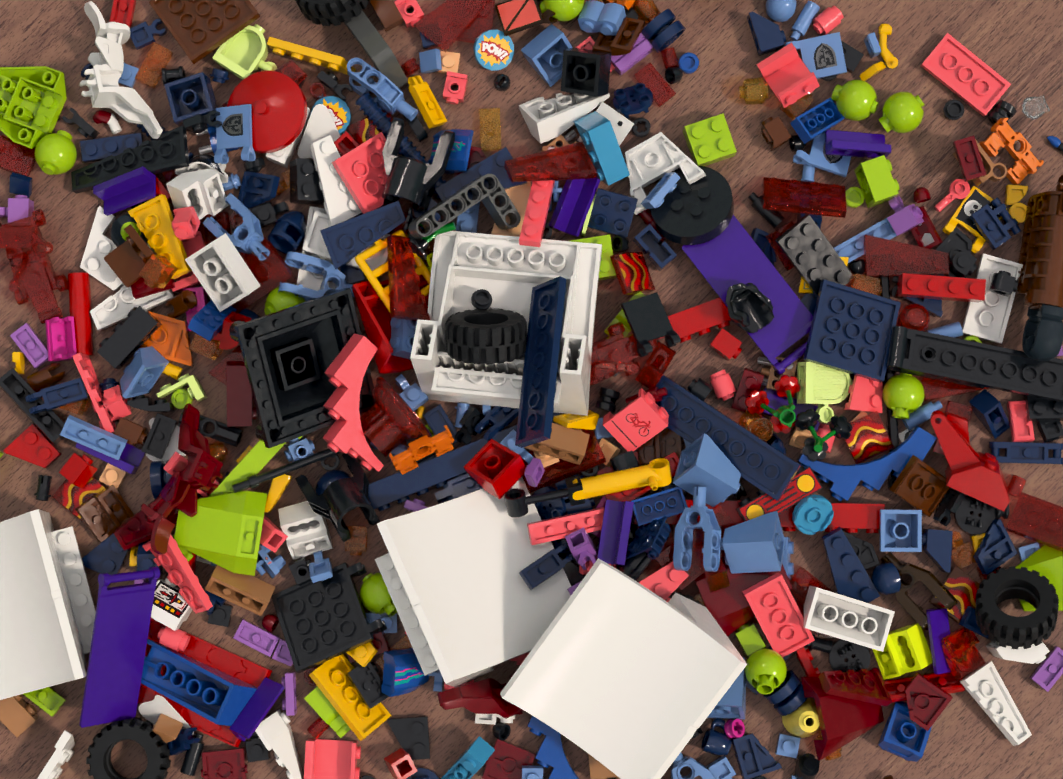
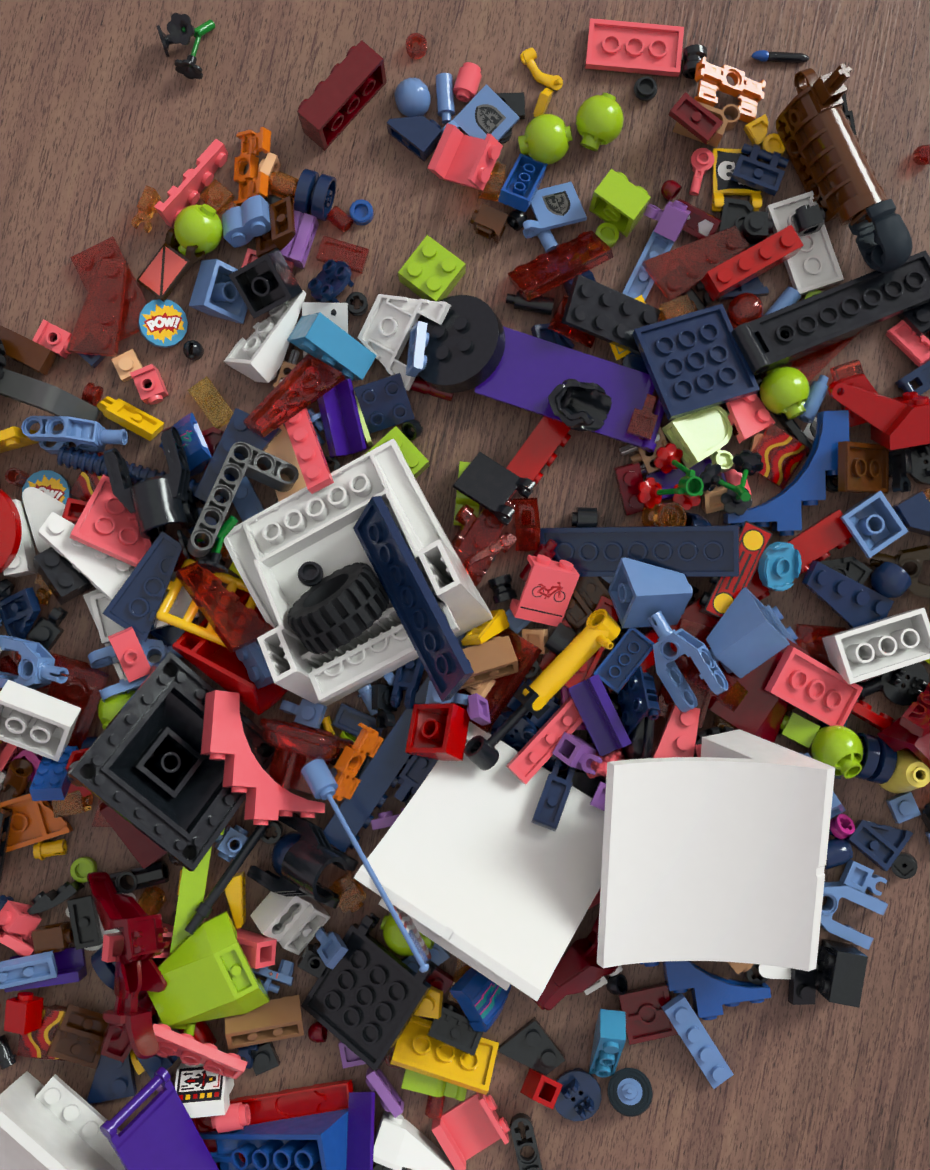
camera: 30 degrees left, 0 degrees up
(112, 476) = (65, 994): light nougat plate -> none
(142, 372) = (23, 872): medium blue slope -> none
(195, 388) = (87, 849): yellowish green bracket -> none
(256, 638) = (314, 1057): medium lavender plate -> none
(288, 232) = (78, 634): dark blue helmet -> none
(320, 271) = (130, 654): none -> coral plate
(330, 82) = (21, 459): black plate -> none
(393, 451) = (324, 787): none -> medium blue flag
(417, 128) = (138, 448): black beam -> none
(430, 61) = (108, 375): medium blue tile -> none
(632, 273) = (443, 449): slope -> none
(648, 241) = (437, 408): dark blue piece -> none
(669, 72) = (351, 229): black hinge -> none
(722, 385) = (604, 499): coral brick -> none
(726, 345) = (581, 458): red brick -> none
(754, 91) = (442, 195): clear yellow head -> none
(786, 348) = (643, 420): none -> clear red plate
(856, 144) = (575, 182): dark purple panel -> none
(857, 266) = (656, 298): black hinge -> none
(872, 45) = (526, 77): medium blue tile -> none
(990, 413) = (878, 353): dark blue slope -> none
(1034, 107) = (720, 35): clear animal -> none

